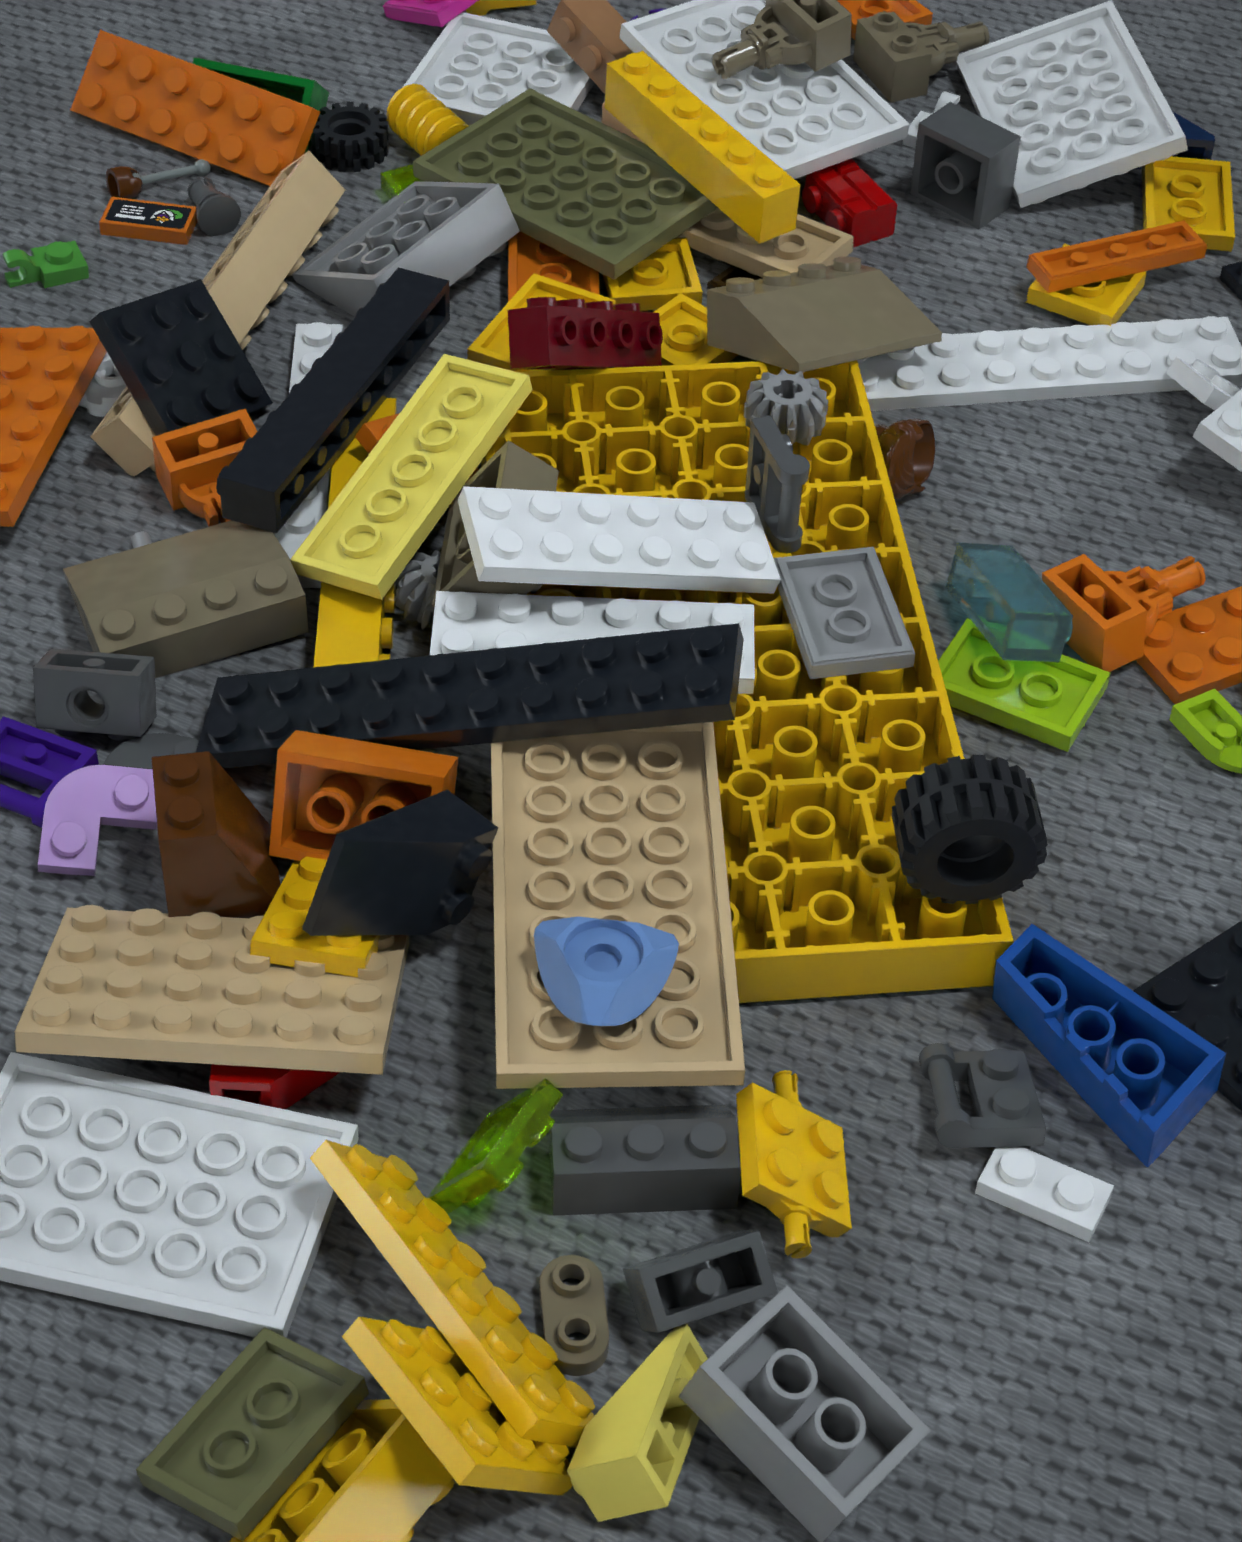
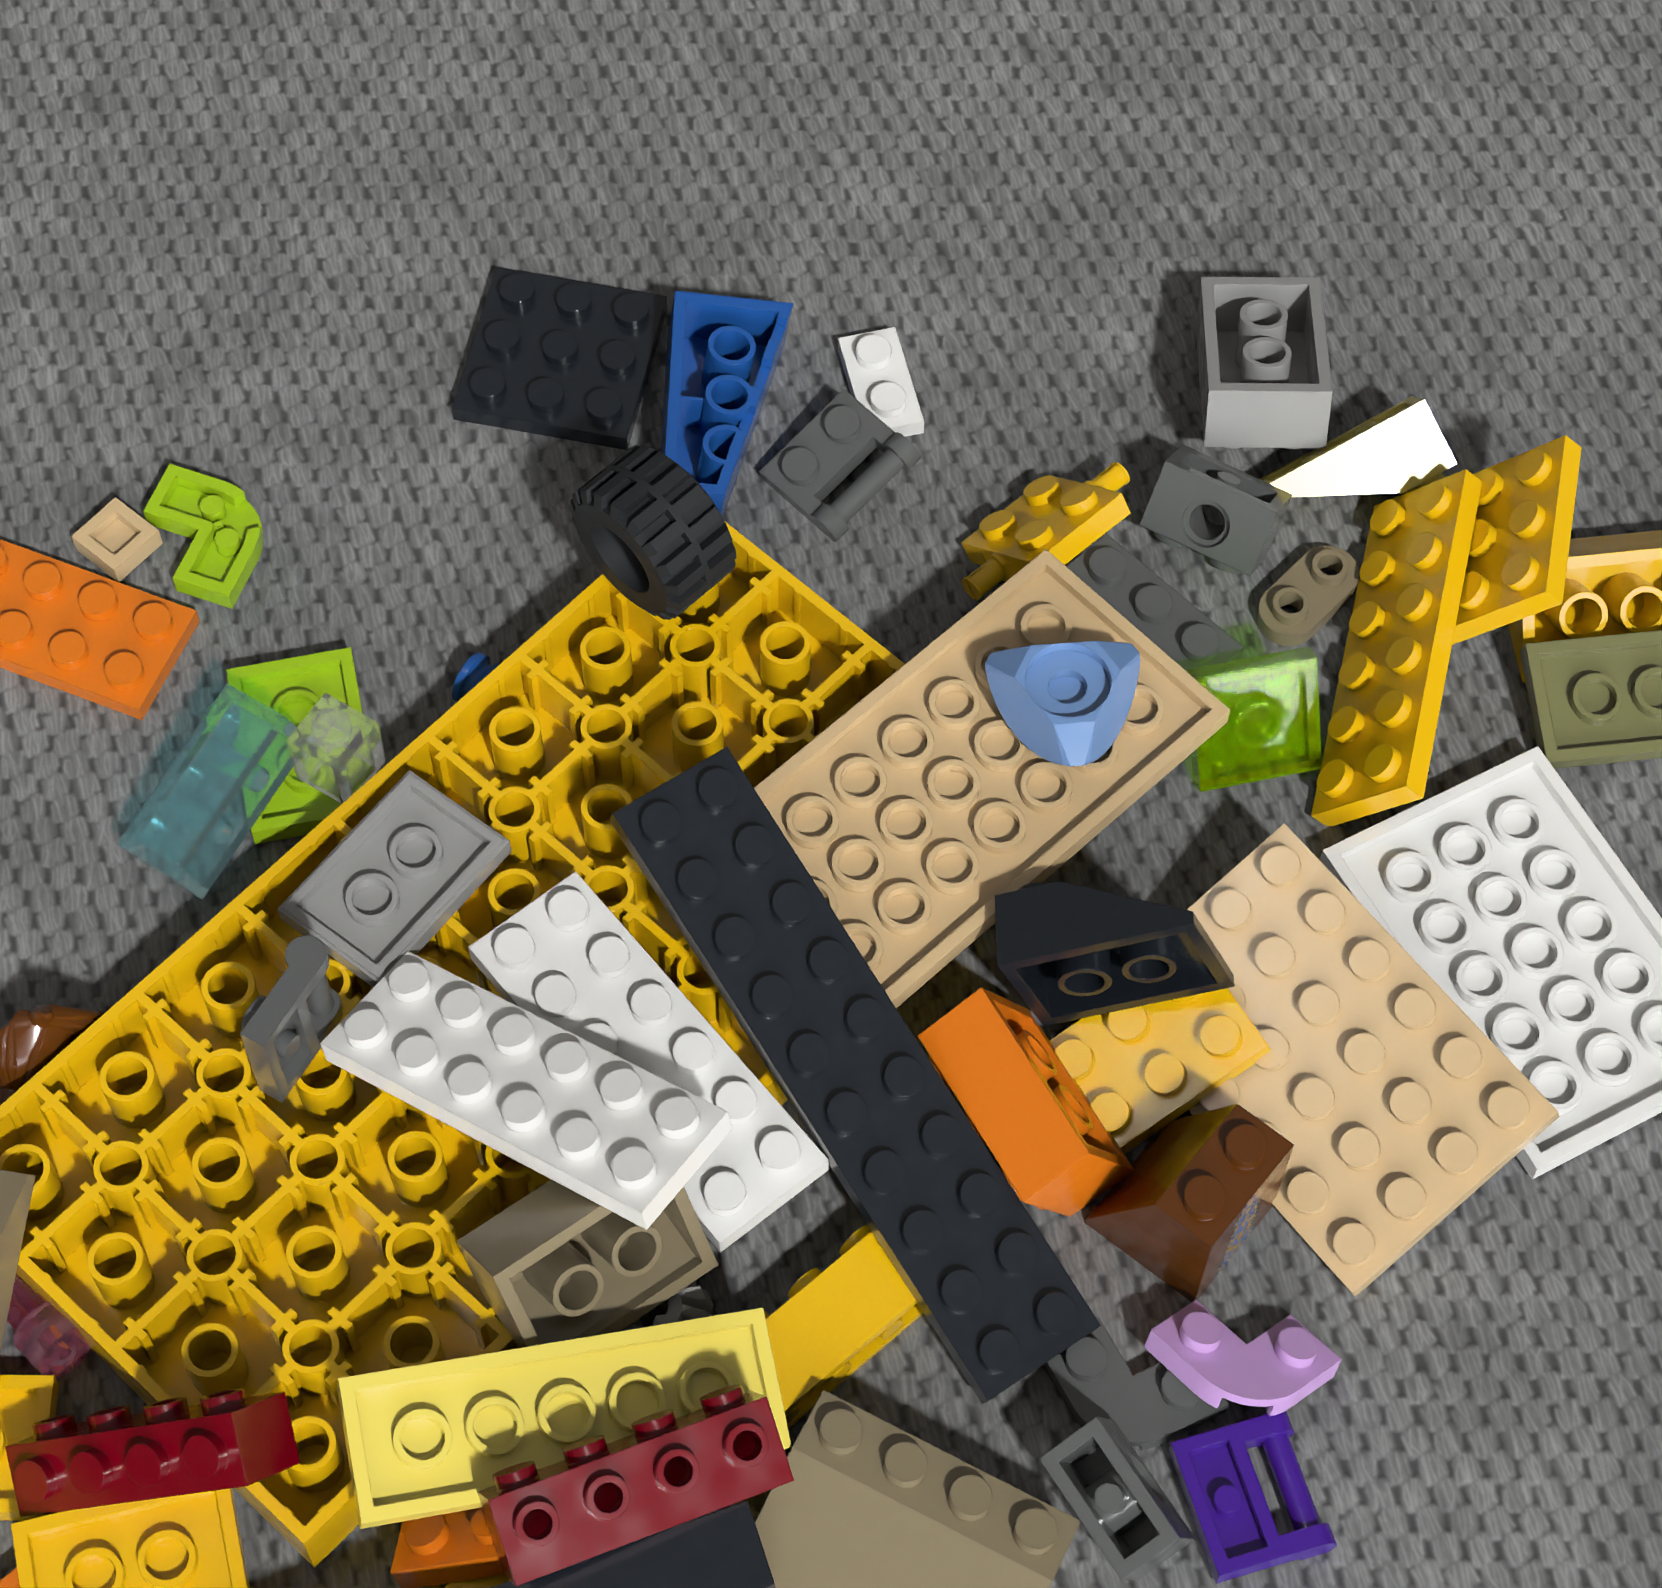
camera: 130 degrees left, 15 degrees up
(335, 459) = (635, 1484): none -> dark red brick
(793, 403) = (105, 1159): light grey gear -> none
(978, 657) = (336, 748): none -> clear brick
(1117, 608) = (128, 708): orange brick -> none

